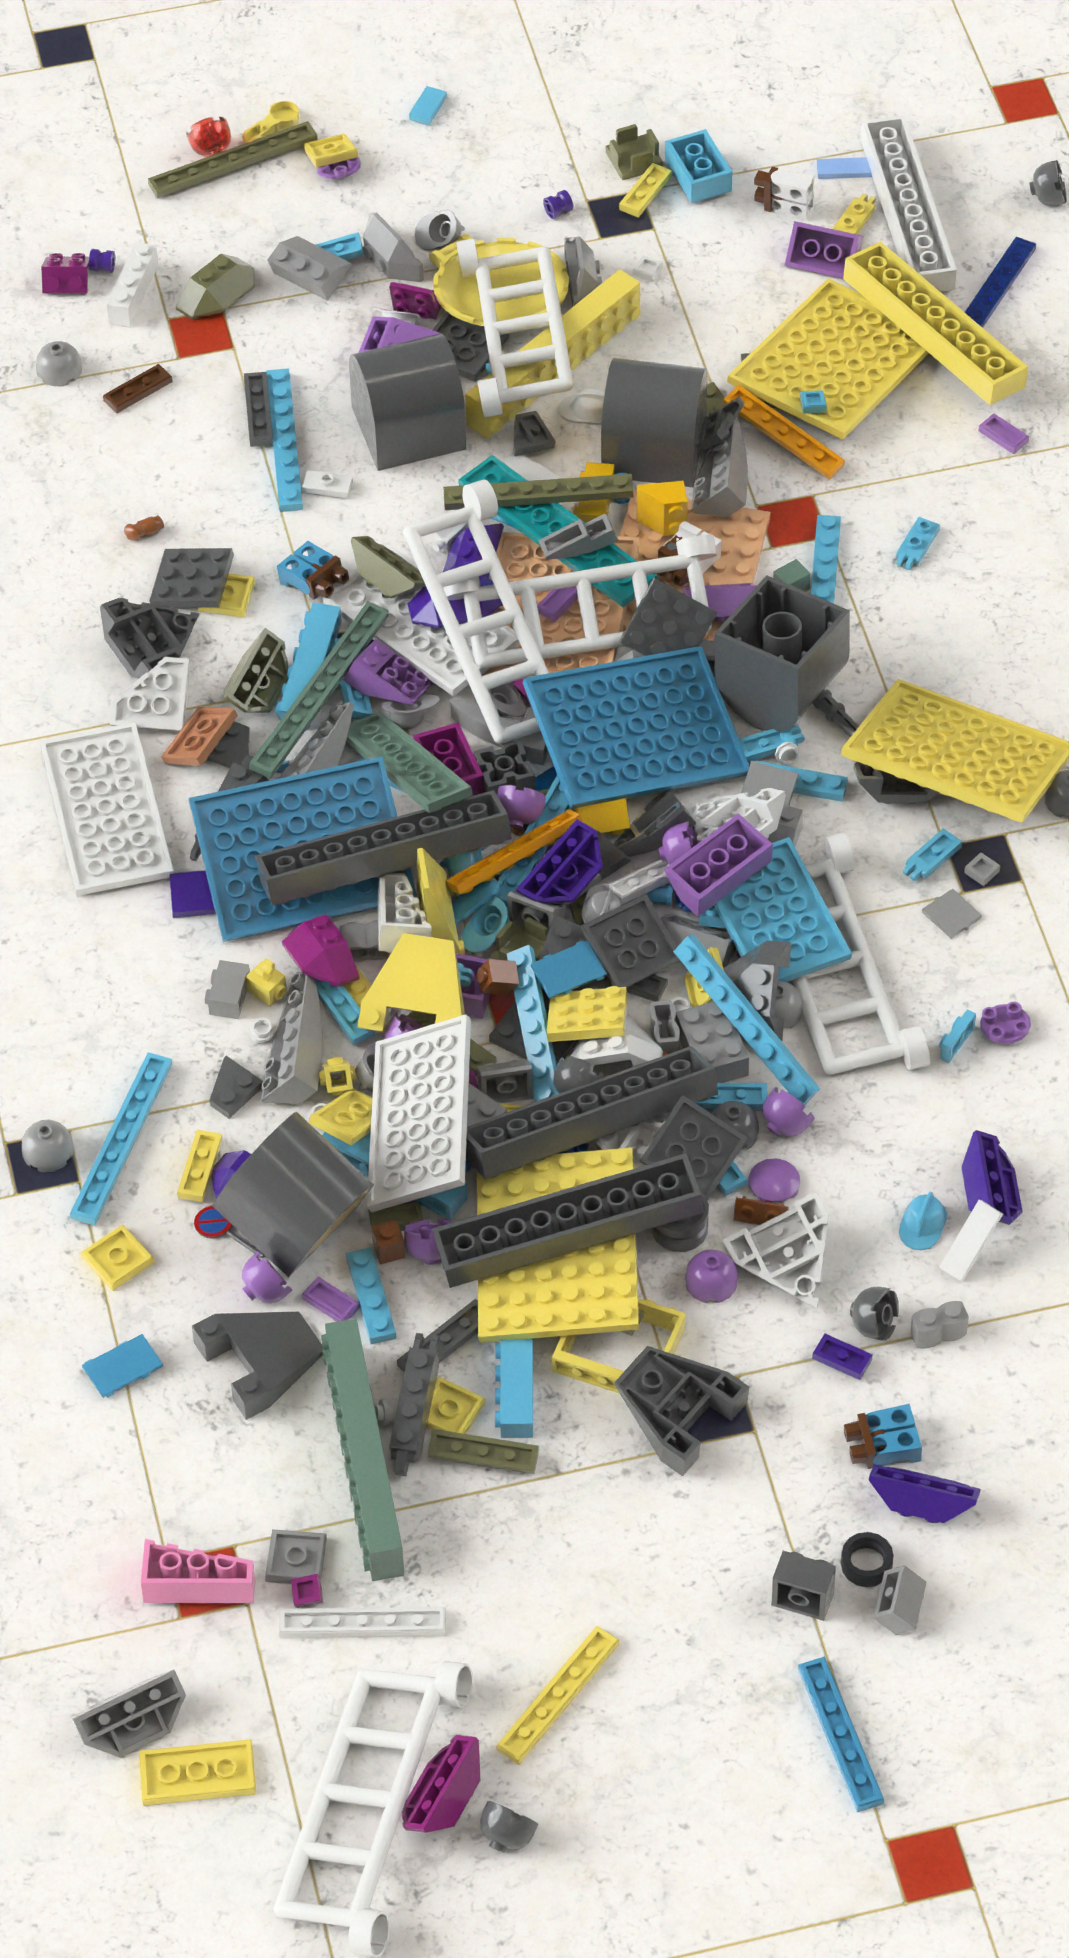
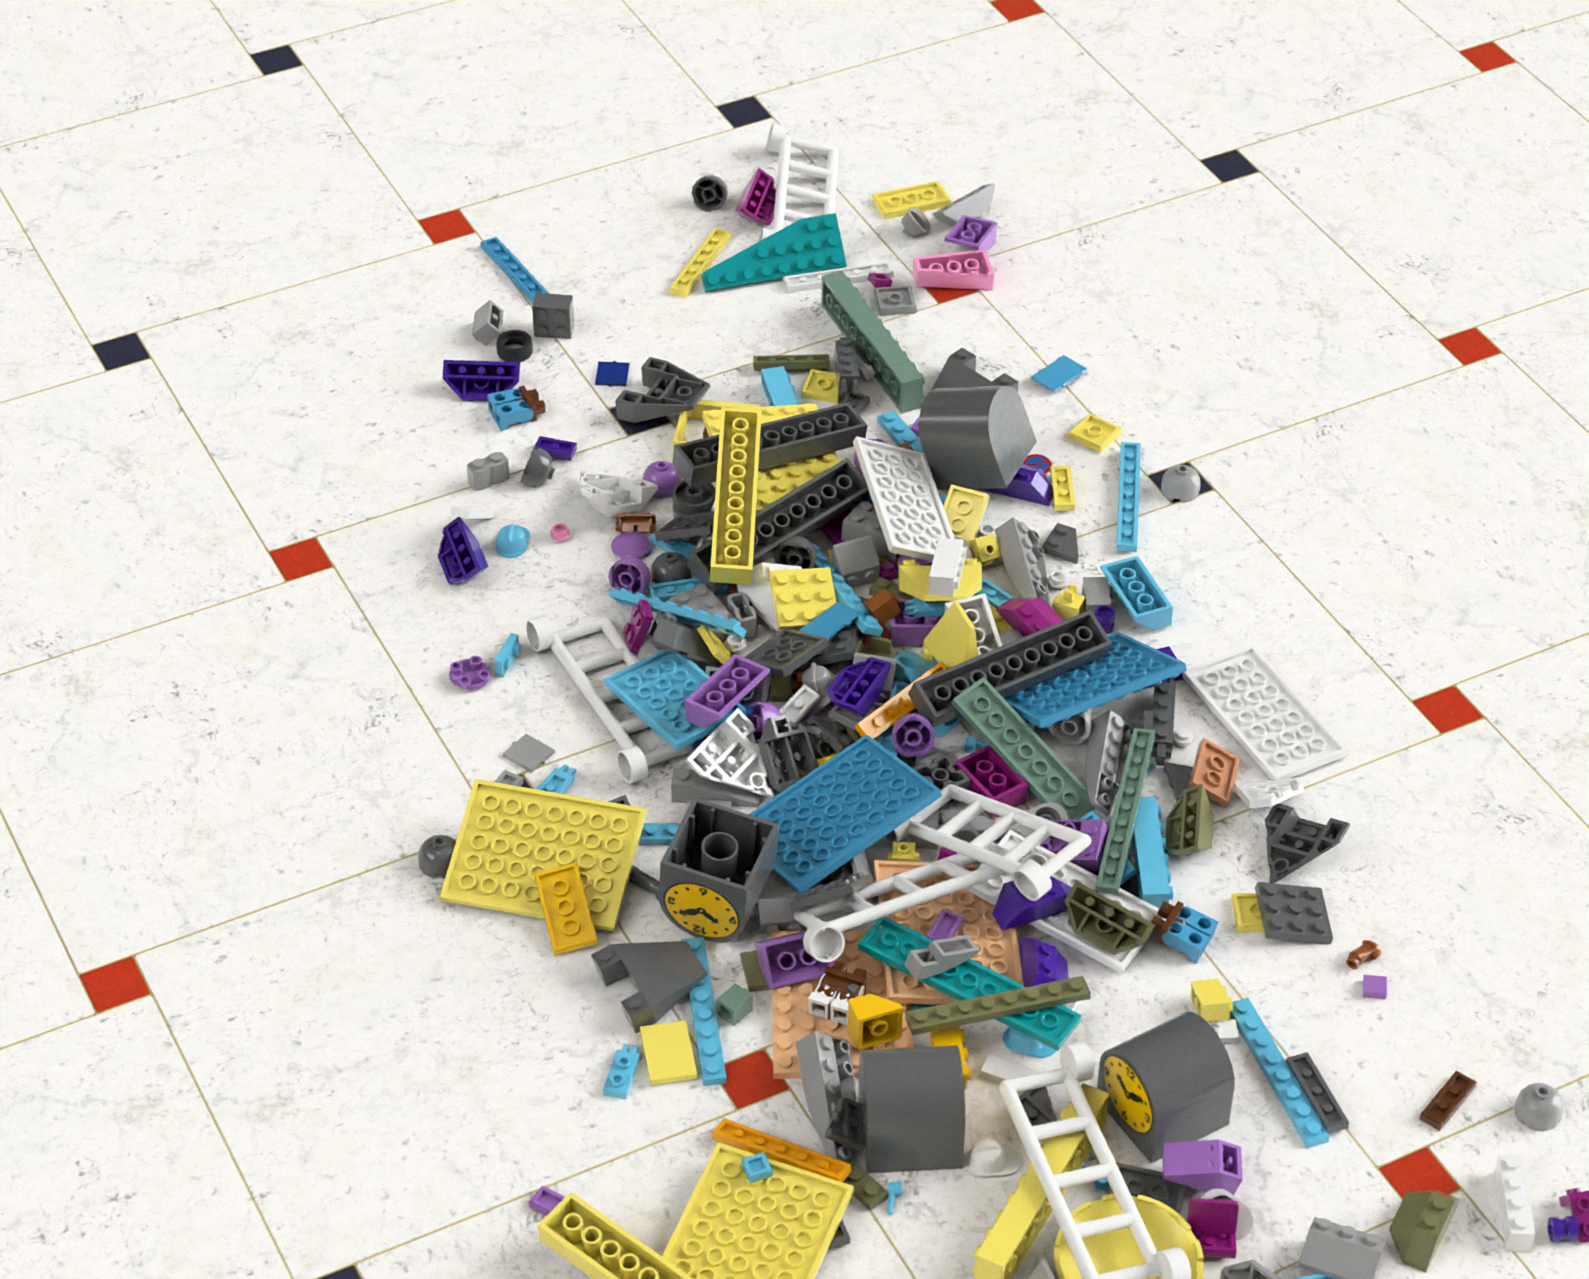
camera: 165 degrees right, 10 degrees down
(148, 500) = (1374, 986): none -> medium lavender tile
(148, 1628) = (973, 233): none -> medium lavender slope
(182, 973) = (1139, 592): none -> medium azure slope
(213, 1699) = (915, 222): none -> light grey piece
(233, 952) = (1105, 616): none -> dark purple wheel
(320, 497) = (1211, 1000): none -> light yellow brick
(396, 1653) = (798, 249): none -> teal wing
(411, 978) = (947, 567): none -> white brick
(641, 1101) = (735, 496): none -> light yellow brick
(736, 1492) = (612, 373): none -> clear blue piece
(795, 1021) = (638, 625): none -> magenta plate
(860, 1216) = (560, 532): none -> bright pink plate
(868, 552) = (668, 1053): none -> light yellow tile
(874, 615) = (658, 970): none -> dark grey wedge
(945, 698) = (565, 909): none -> yellow tile

